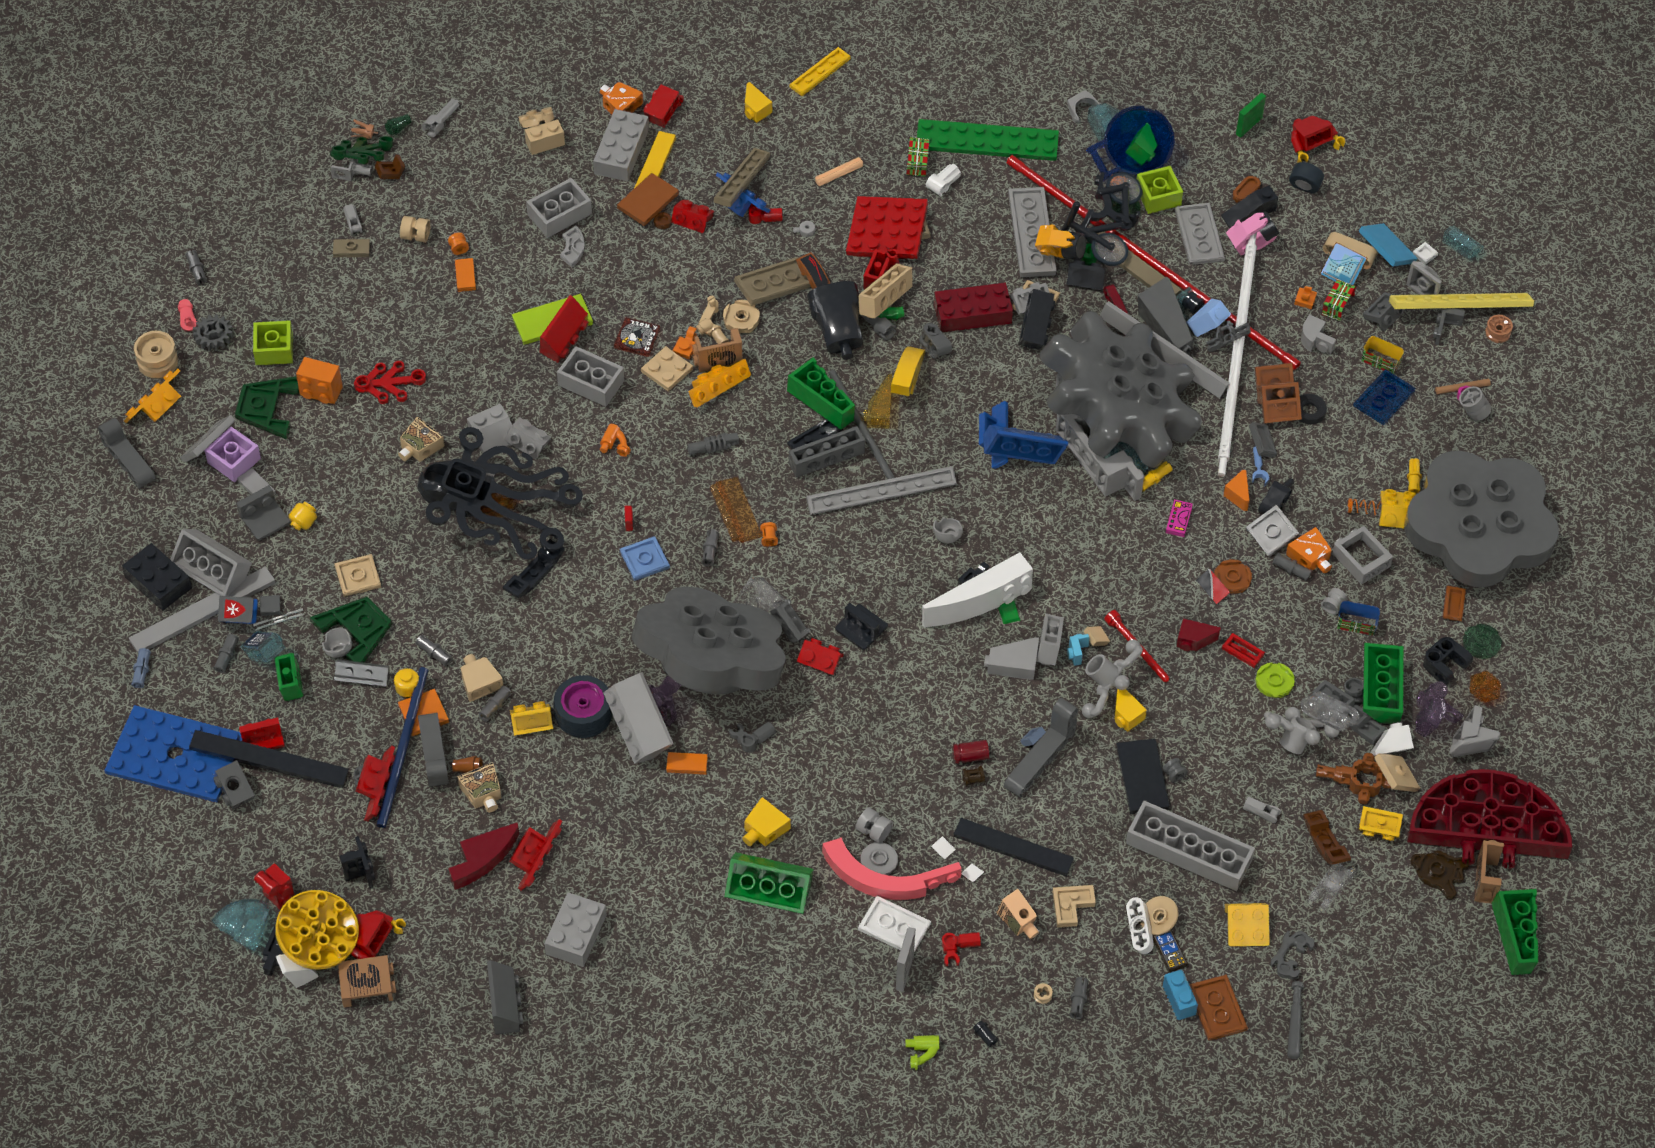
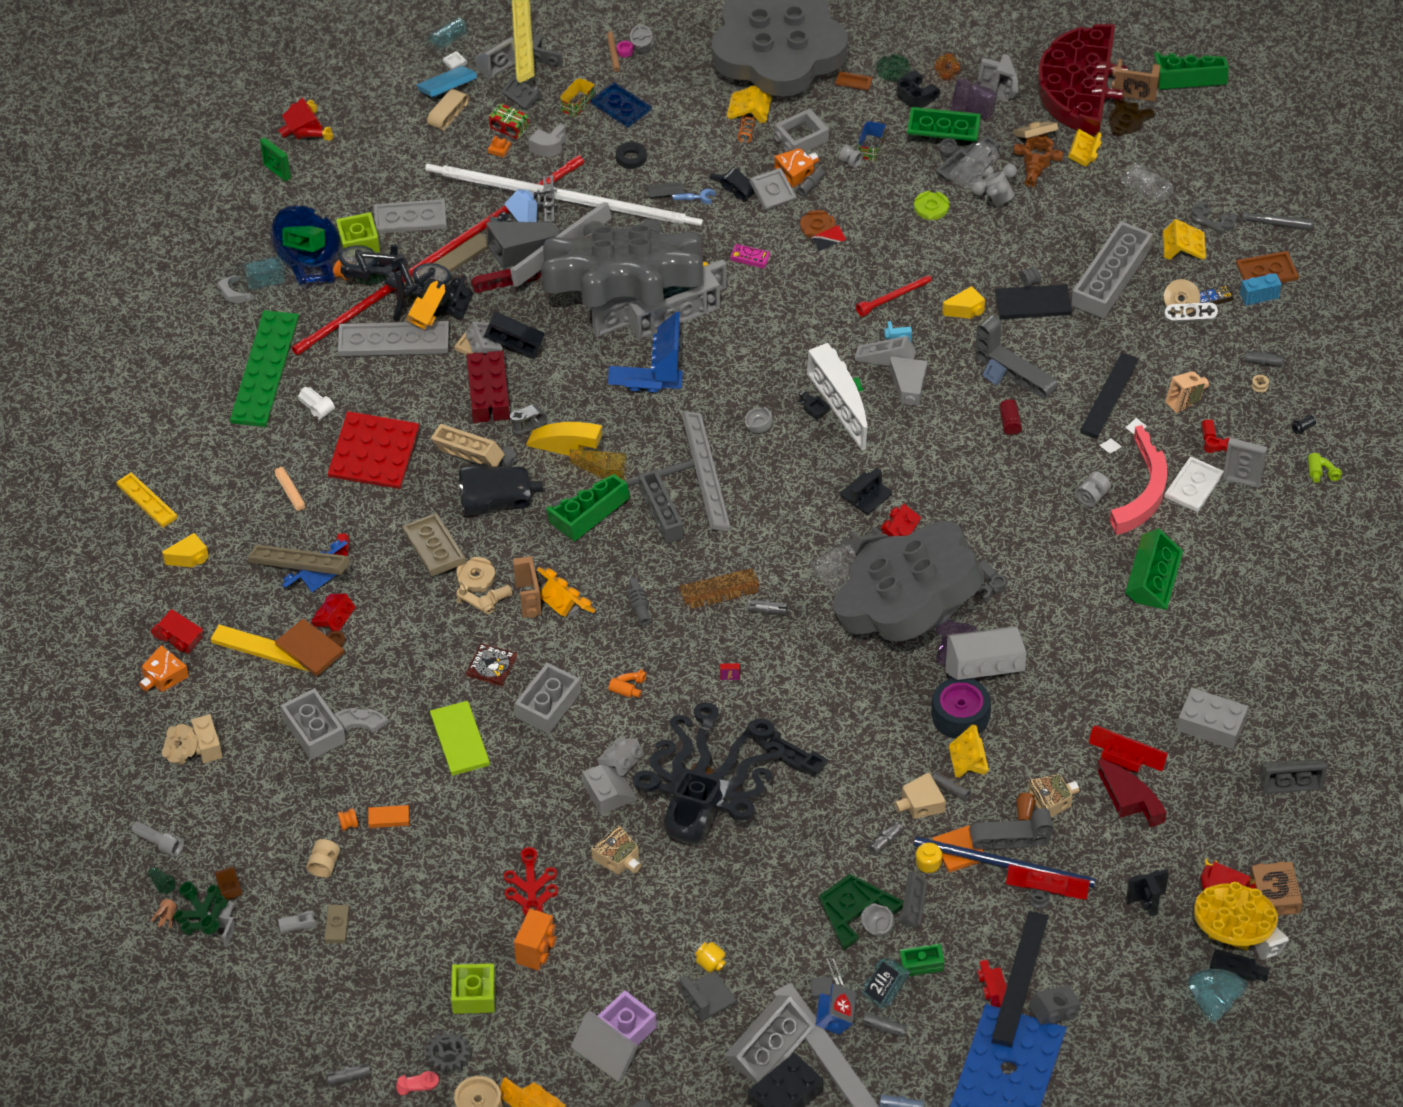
camera: 85 degrees left, 5 degrees down
(252, 481) = (666, 1004): light grey tile -> none
(259, 403) = (554, 1005): dark green wing -> none
(275, 885) = (1179, 959): red hinge -> none
(357, 575) = (786, 909): tan tile -> none
(563, 330) = (486, 720): red slope -> none
(621, 145) = (229, 669): light grey brick -> none
(644, 558) = (776, 663): medium blue tile -> none
(667, 368) = (536, 639): tan plate -> none
(684, 345) = (508, 623): orange plate -> none
(687, 763) = (1023, 624): orange tile -> none
(765, 824) = (1090, 571): yellow torso -> none
(769, 534) = (761, 556): orange bush -> none
(806, 229) = (363, 518): light grey piece -> none
(813, 270) = (425, 509): slope -> none
(813, 434) = (634, 523): black tile -> none
(878, 265) = (433, 455): red hinge -> none
(884, 859) = (1124, 490): light grey wheel -> none
(917, 156) = (283, 414): piece -> none
(973, 776) = (1036, 417): dark brown bush -> none
(1068, 899) = (1166, 360): tan plate -> none
(1097, 636) = (881, 321): tan tile -> none
(1109, 676) = (948, 312): light grey wheel -> none
(1196, 635) = (885, 252): dark red slope -> none
(1237, 491) = (724, 208): orange slope -> none
(1242, 653) = (902, 224): red tile -> none
(1245, 188) = (359, 178): dark orange tile -> none
(1256, 202) = (386, 173): black slope -> none
(1258, 808) = (1068, 224): light grey bar -> none
(1260, 223) = (426, 176): bright pink piece -> none
(1278, 393) = (618, 169): dark orange bracket -> none
(1306, 177) = (357, 128): black wheel -> none
(1324, 839) = (1106, 183): reddish brown slope -> none
(1343, 264) = (469, 113): piece -> none
(1394, 740) = (1003, 130): white slope -> none
(1414, 476) = (714, 91): yellow axle -> none
(1494, 324) = (552, 19): nougat wheel -> none

